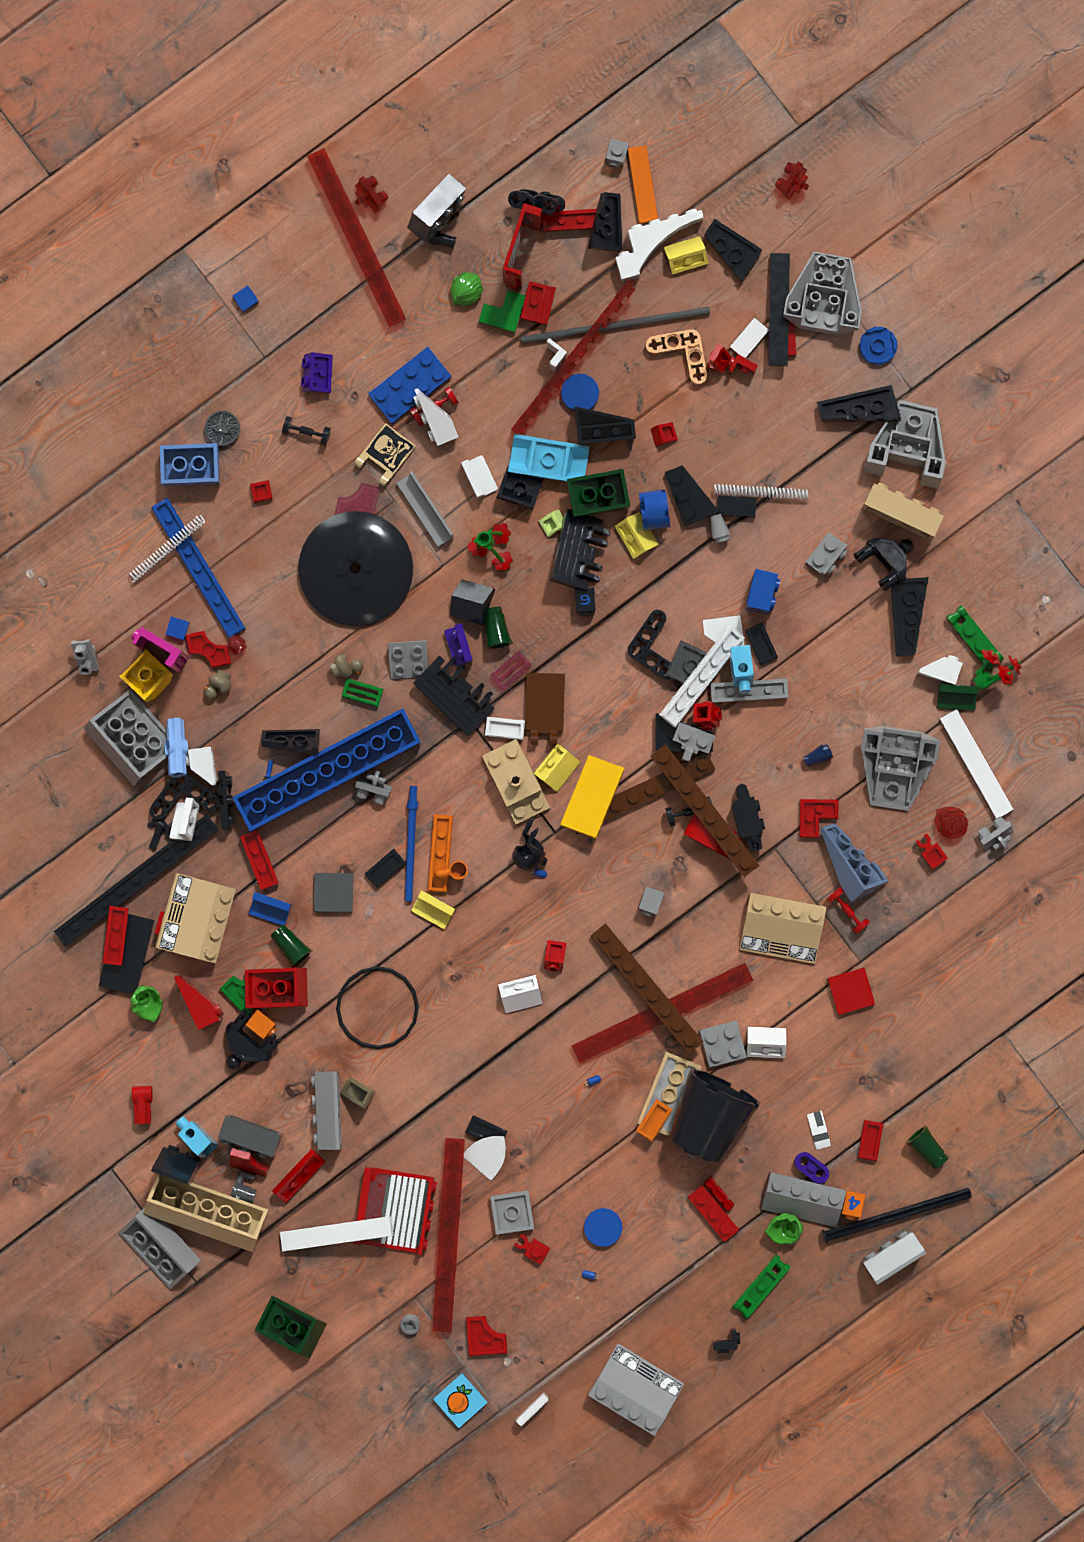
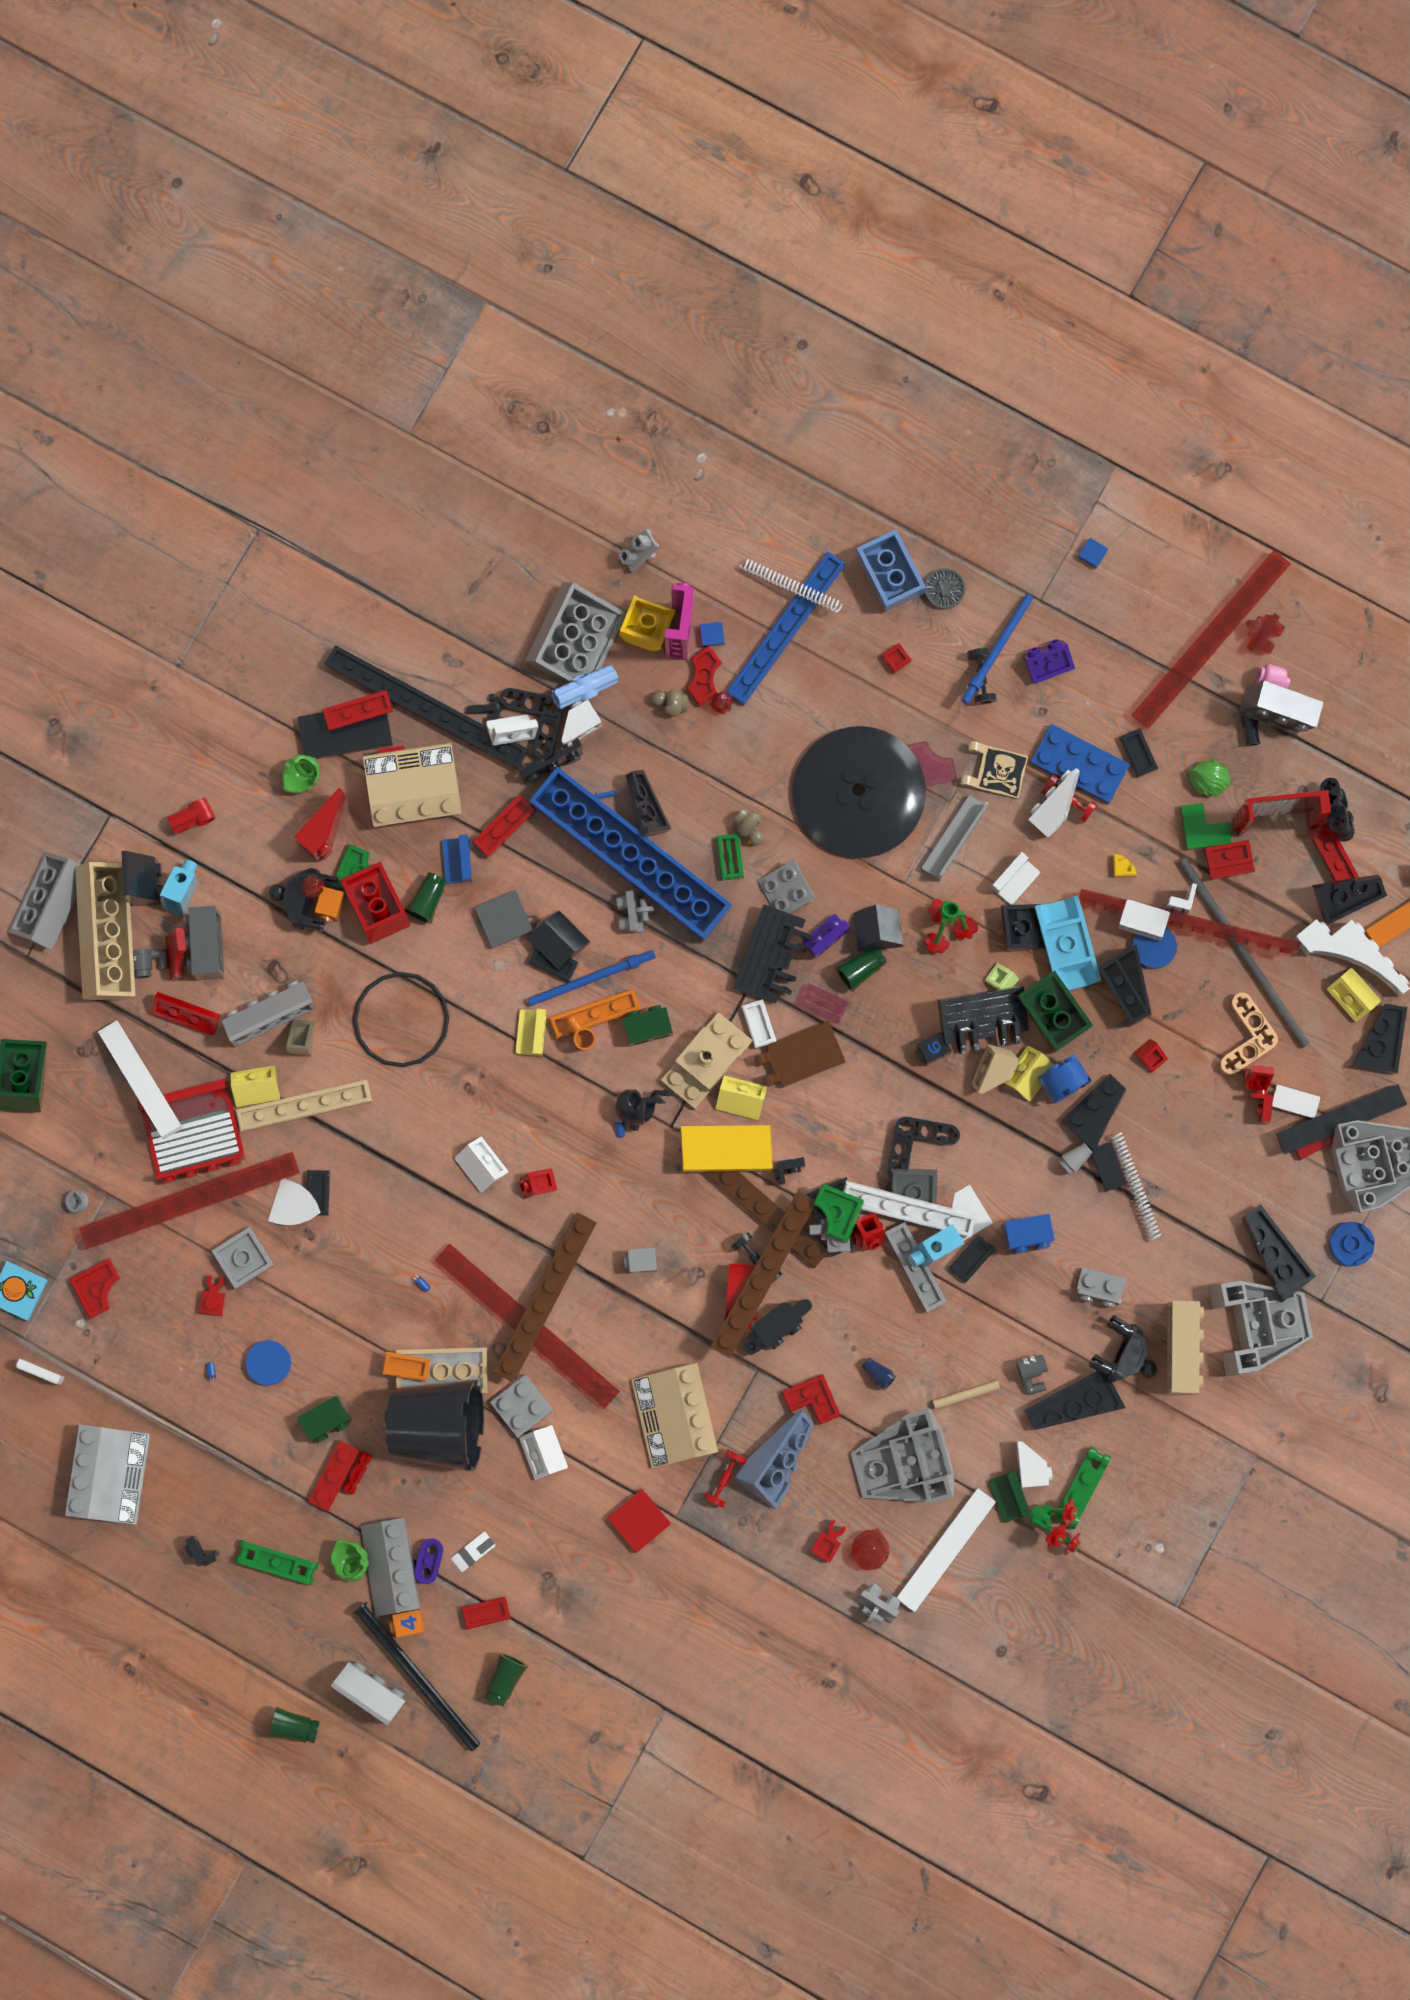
camera: 60 degrees right, 5 degrees down
(243, 1032) = (312, 886): none -> clear red plate
(310, 437) = (977, 682): none -> blue bar
(369, 856) = (557, 940): none -> black slope
(380, 1145) = (255, 1086): none -> light yellow panel
(408, 203) = (1274, 675): none -> bright pink head
(412, 1113) = (304, 1105): none -> tan tile
(421, 335) = (1138, 753): none -> black tile
(468, 816) = (647, 1025): none -> dark green brick
(506, 388) = (1123, 867): none -> yellow tile
(557, 391) = (1144, 920): none -> white panel
(621, 560) = (994, 1068): none -> tan slope
(629, 751) = (792, 1166): none -> black bracket
(666, 1202) = (324, 1419): none -> dark green brick
(681, 729) = (840, 1211): none -> green tile
(864, 695) = (967, 1394): none -> tan bar
(866, 635) = (1030, 1368): none -> dark grey piece
(893, 1327) = (293, 1726): none -> dark green plant

